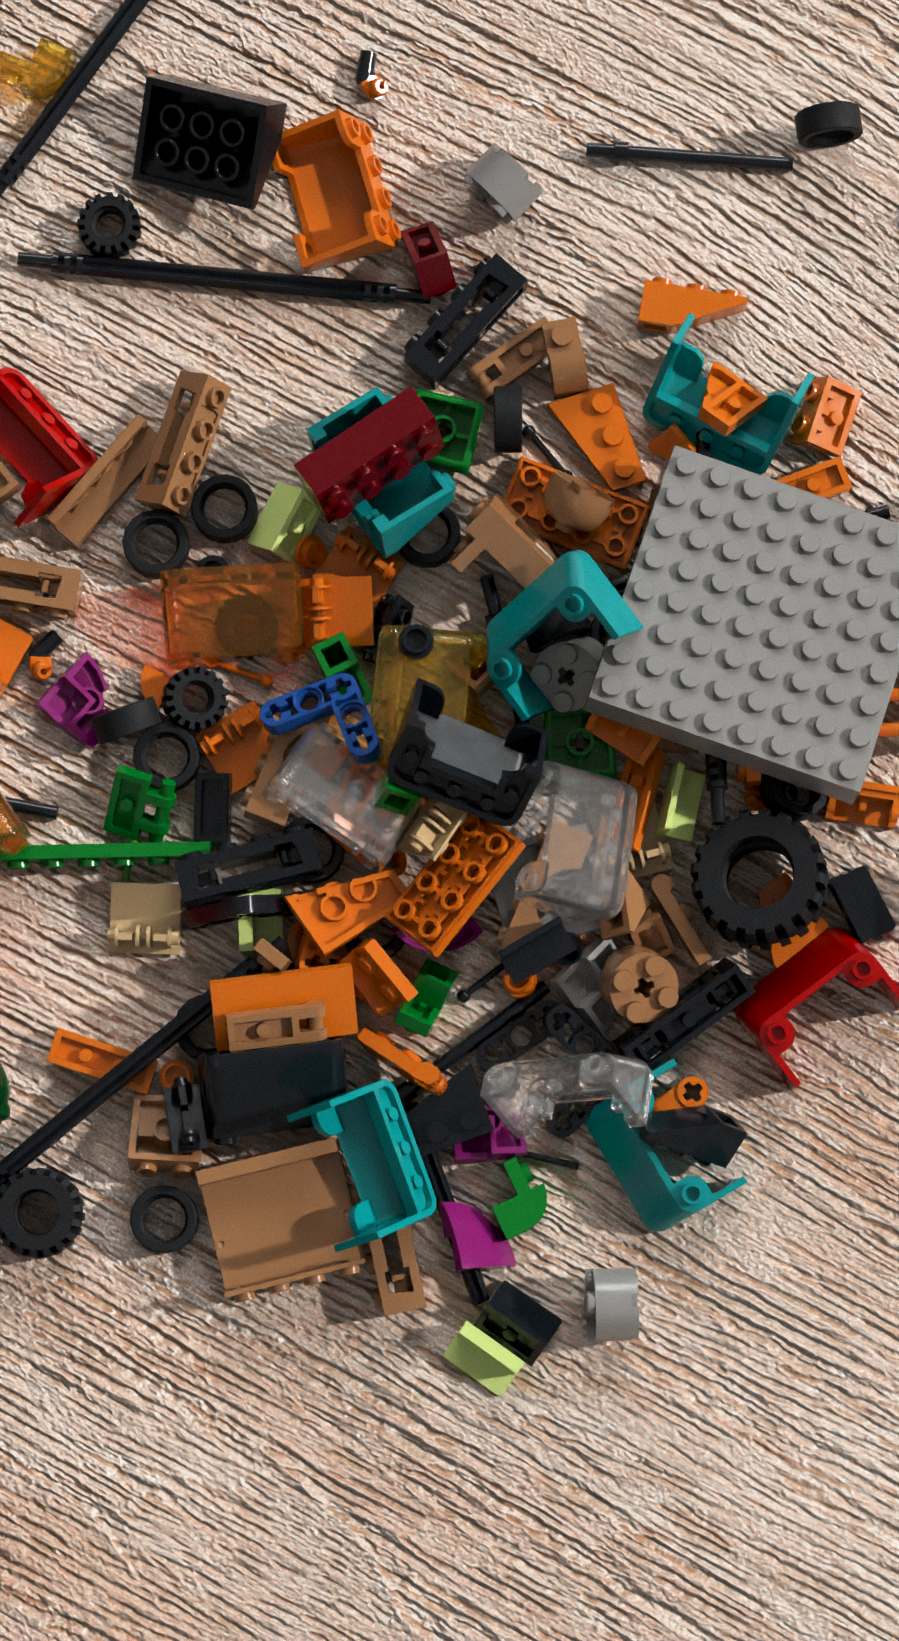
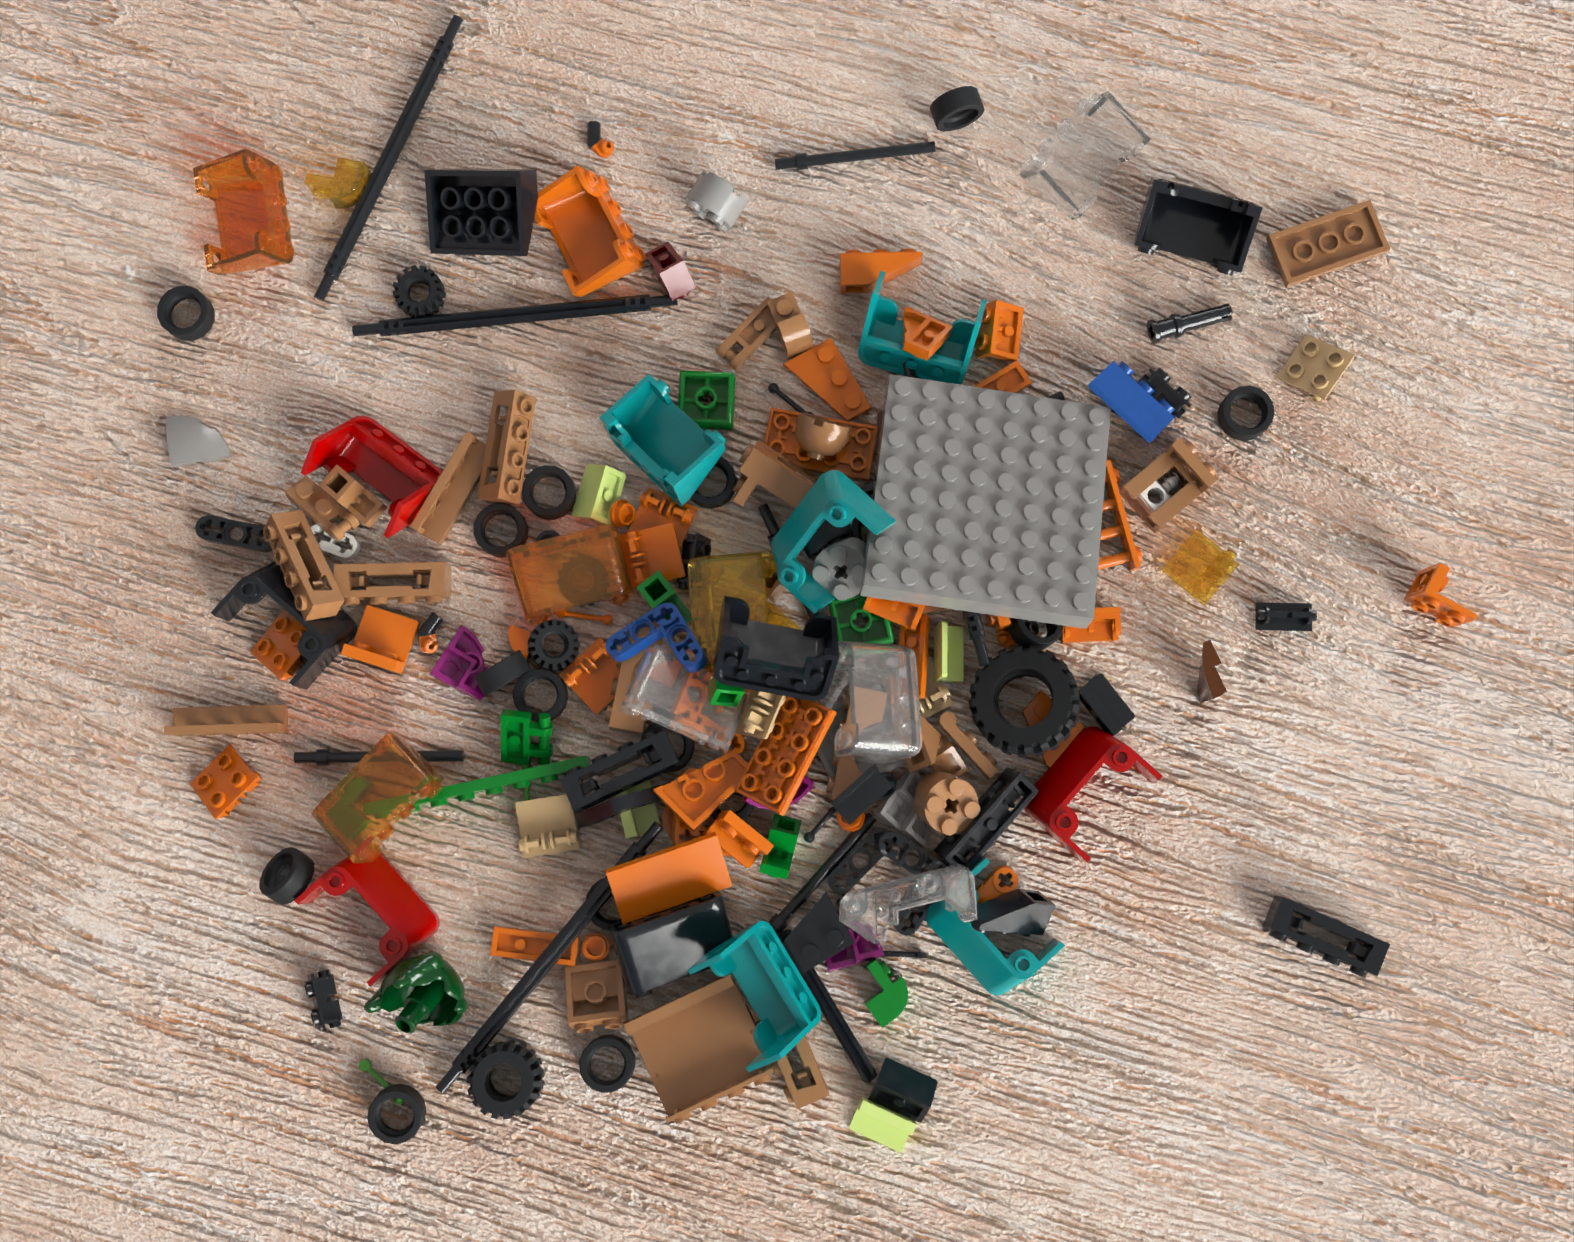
camera: 10 degrees left, 0 degrees up
(185, 1116) = (608, 980): black hinge -> none
(212, 807) = (584, 728): black tile -> none
(271, 958) = (652, 841): medium nougat plate -> none
(275, 1026) = (665, 896): medium nougat plate -> none
(370, 455) = (653, 427): dark red brick -> none
(403, 1062) = (773, 901): orange hinge -> none
(415, 641) = (717, 567): black plate -> none
(474, 1239) = (856, 1031): magenta brick -> none
(501, 278) = (729, 274): black brick -> none
(507, 419) = (755, 380): black tyre -> none
(611, 1304) = (976, 1064): light grey brick -> none
(666, 440) = (881, 374): orange tile -> none

